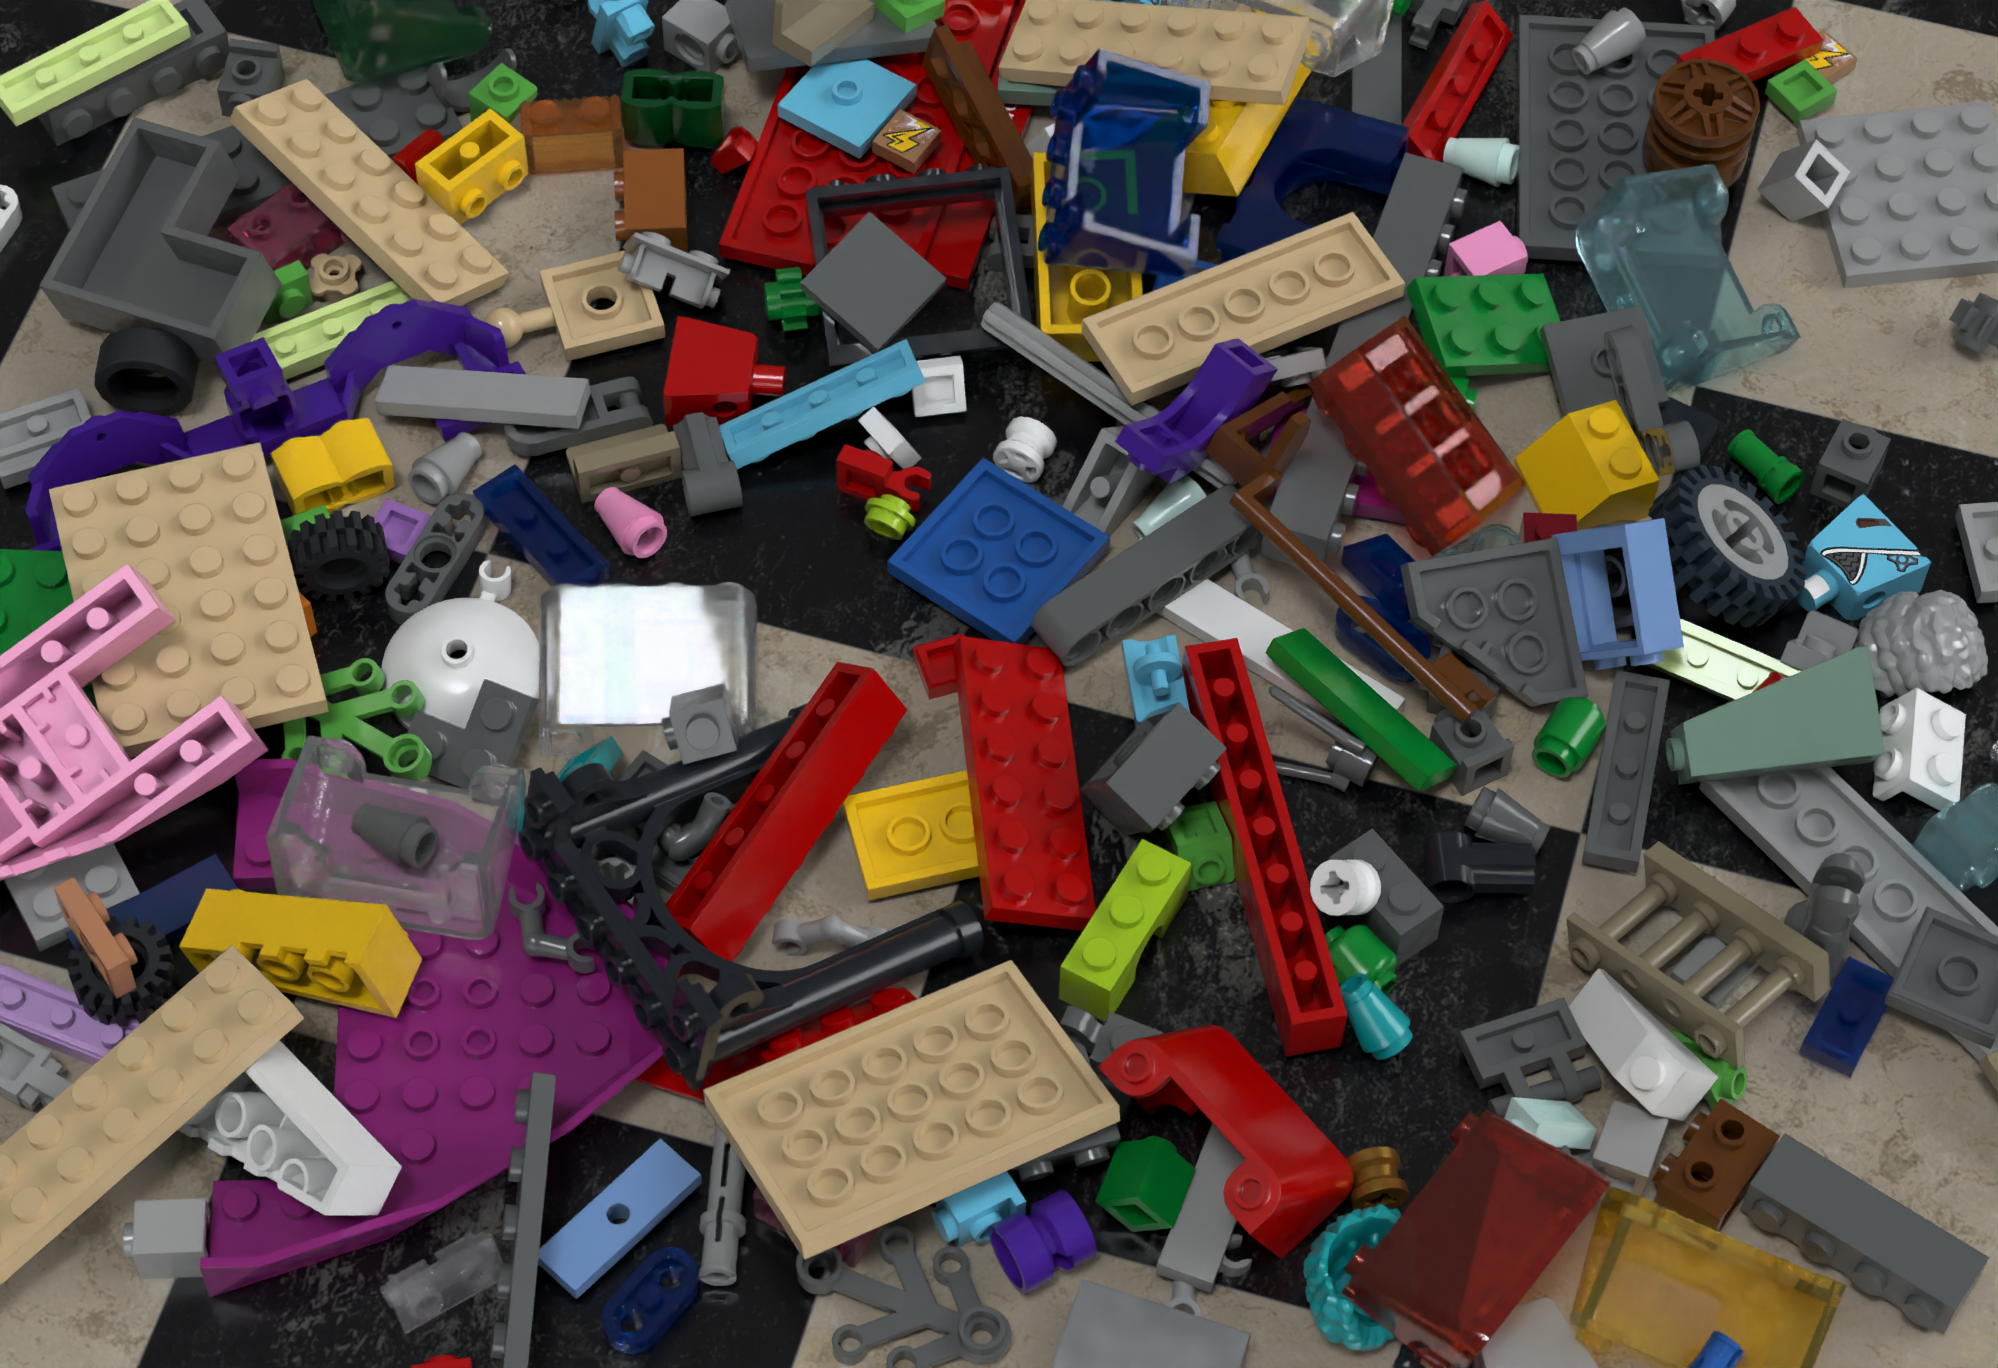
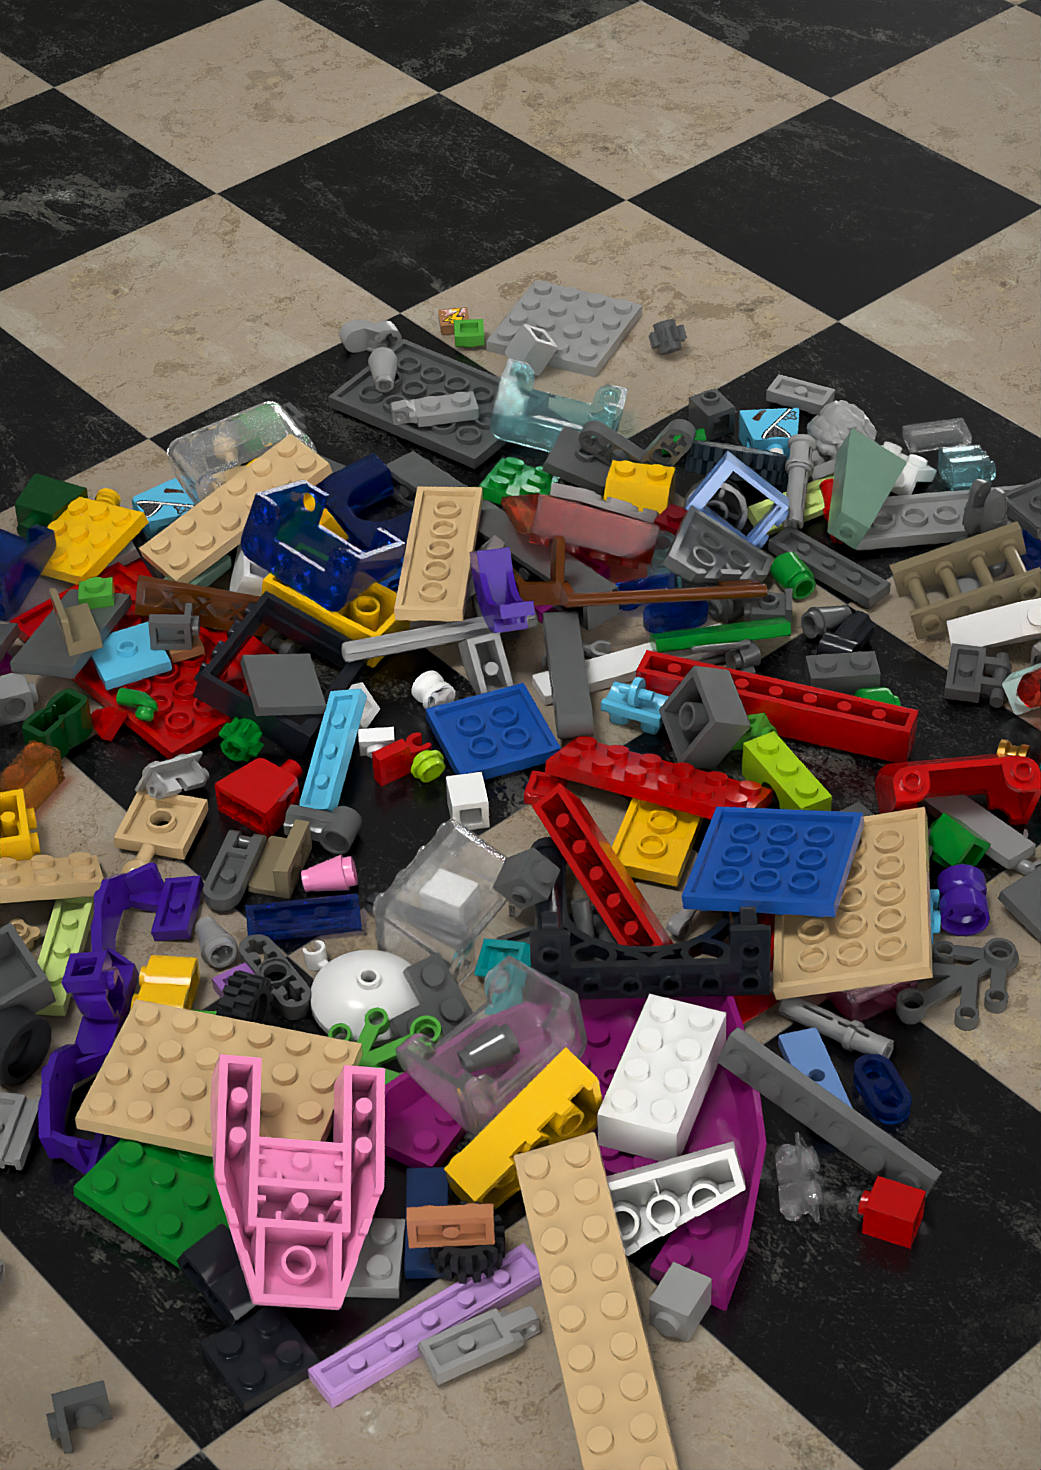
camera: 55 degrees left, 15 degrees down
(473, 1041) = (661, 1079): none -> white brick
(483, 396) = (184, 897): light grey tile -> none
(538, 943) = (607, 1028): dark grey arm -> none
(652, 195) = (109, 767): dark orange brick -> none
(769, 165) = (144, 703): none -> green arm
(851, 592) = (468, 800): none -> white brick
(895, 122) = (174, 631): none -> dark grey bracket
(906, 979) = (774, 861): none -> blue plate
(1167, 505) = (525, 654): light aqua cone -> none
(1359, 890) = (835, 679): white wheel -> none
(1375, 1018) = (928, 714): teal cone -> none
(1456, 81) = (339, 431): red plate -> none
(1484, 158) = (405, 444): light aqua cone -> none
(1486, 253) = (473, 468): bright pink brick -> none
(1494, 431) = (612, 505): none -> light grey plate
(1577, 144) = (436, 409): none -> light grey hinge
(1701, 117) = (474, 356): reddish brown wheel -> none
(1764, 45) = (434, 333): red plate -> none
(1767, 628) = (798, 468): none -> light grey pin

